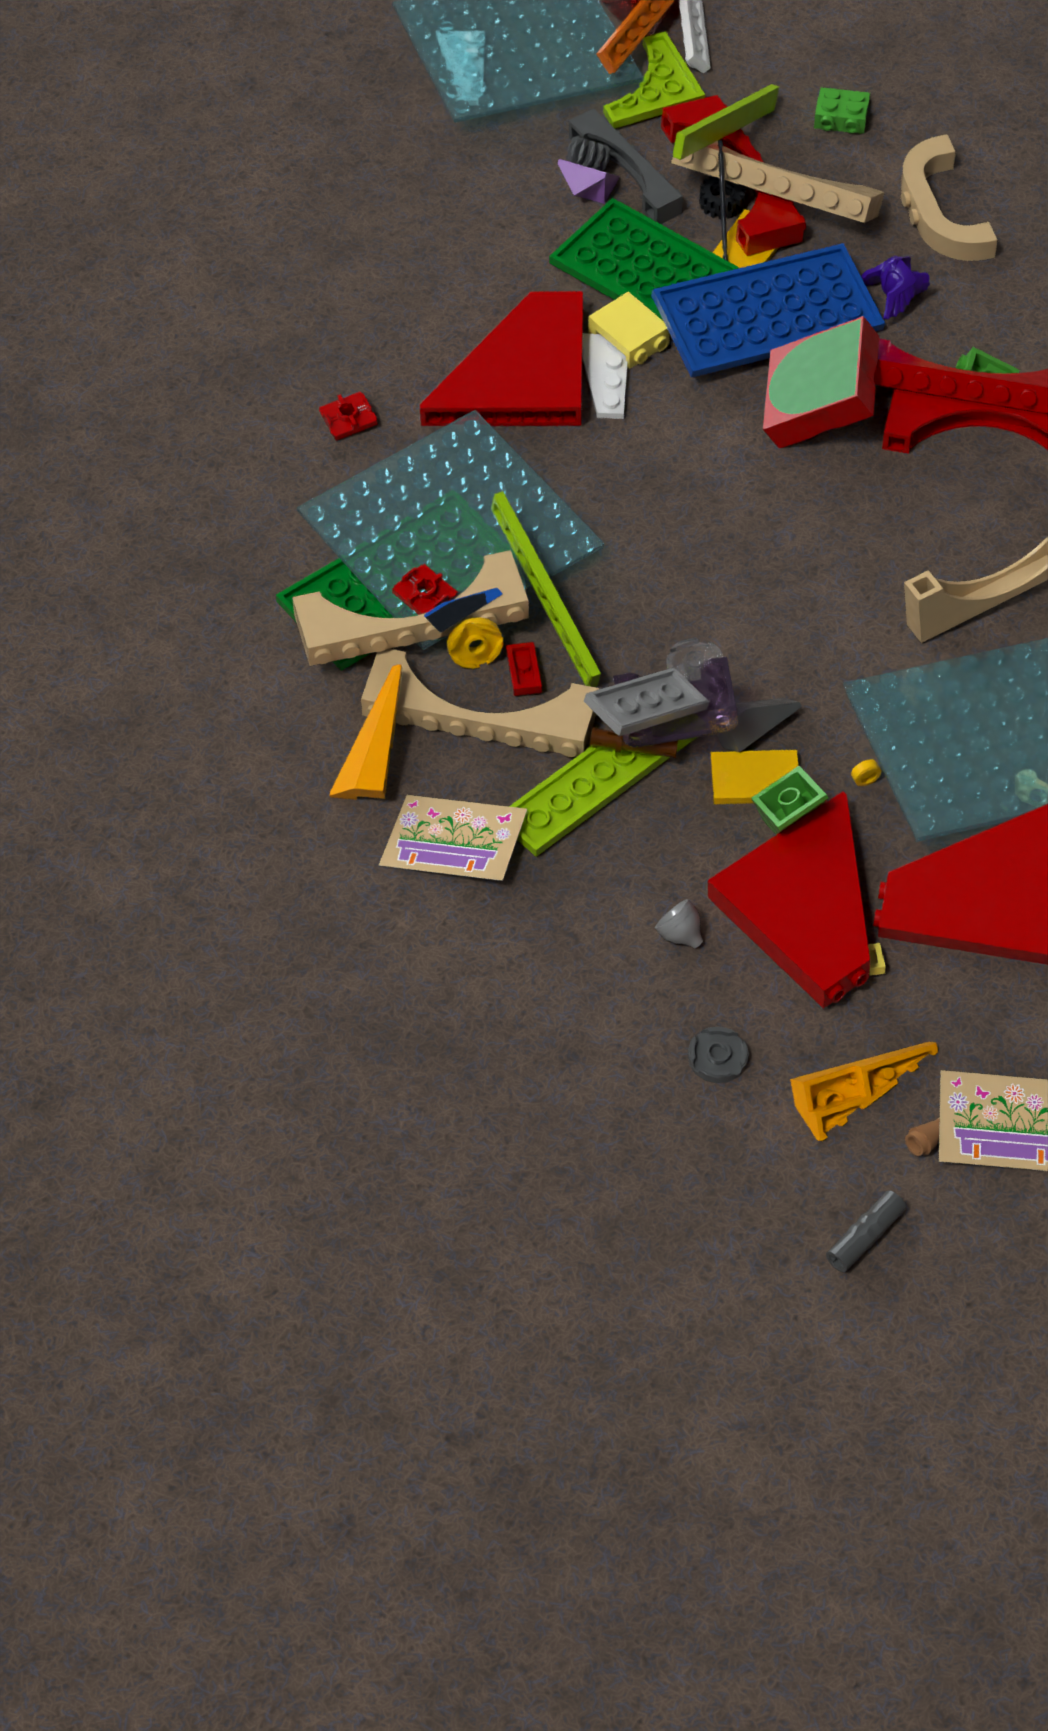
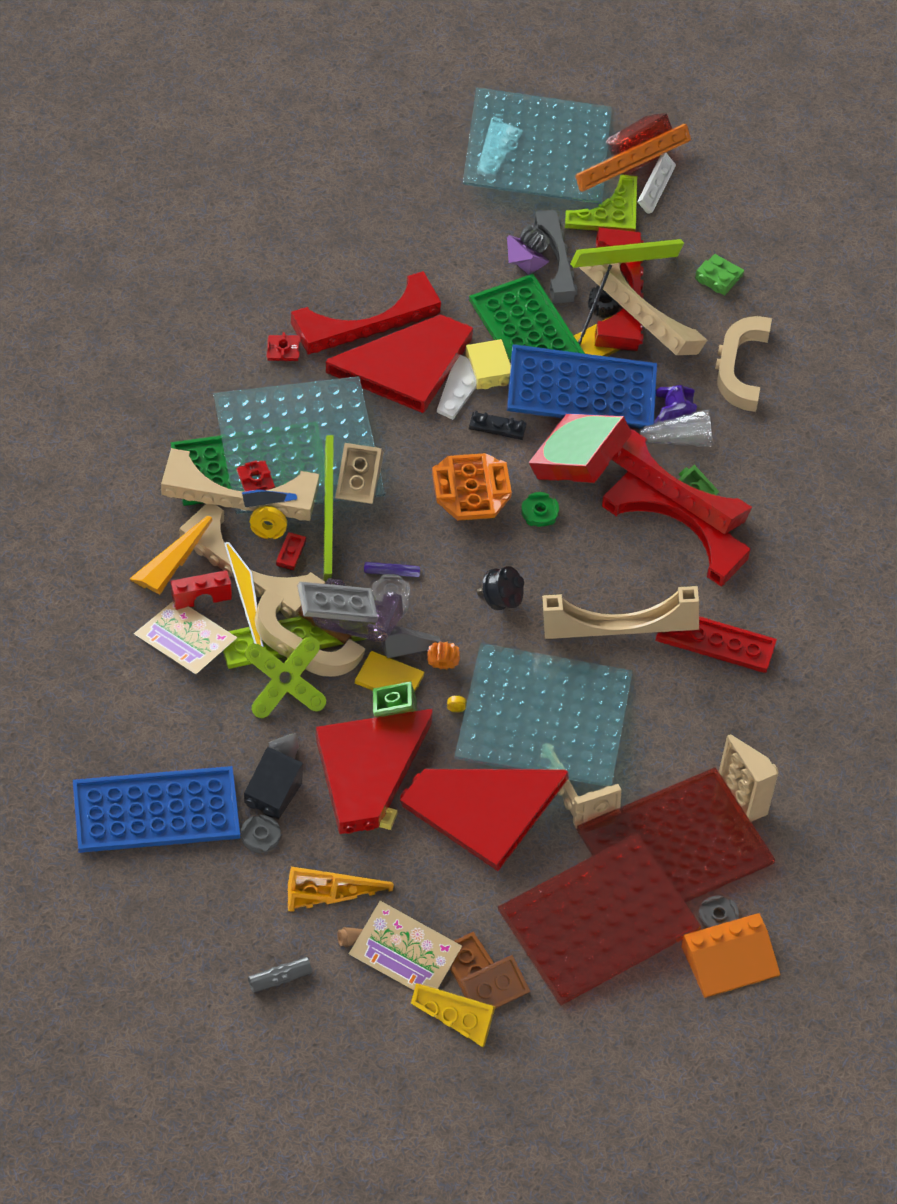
camera: 20 degrees right, 0 degrees up
(390, 375) = (322, 332): none -> red arch
(419, 777) = (186, 590): none -> red arch
(501, 741) = (245, 585): none -> yellow sticker
(557, 1084) = (156, 809): none -> blue plate
(559, 528) = (359, 473): none -> tan slope
(612, 787) = (285, 642): none -> tan arch
(639, 834) = (295, 686): none -> lime piece
(669, 637) = (397, 569): none -> dark purple axle
(686, 402) = (497, 425): none -> black plate
(699, 978) = (274, 783): none -> black slope
(712, 486) = (472, 486): none -> orange piece
(810, 496) = (537, 518): none -> green plate
(812, 717) = (443, 655): none -> orange gear
(833, 599) = (502, 588): none -> black wheel
(932, 310) = (684, 430): none -> clear cone

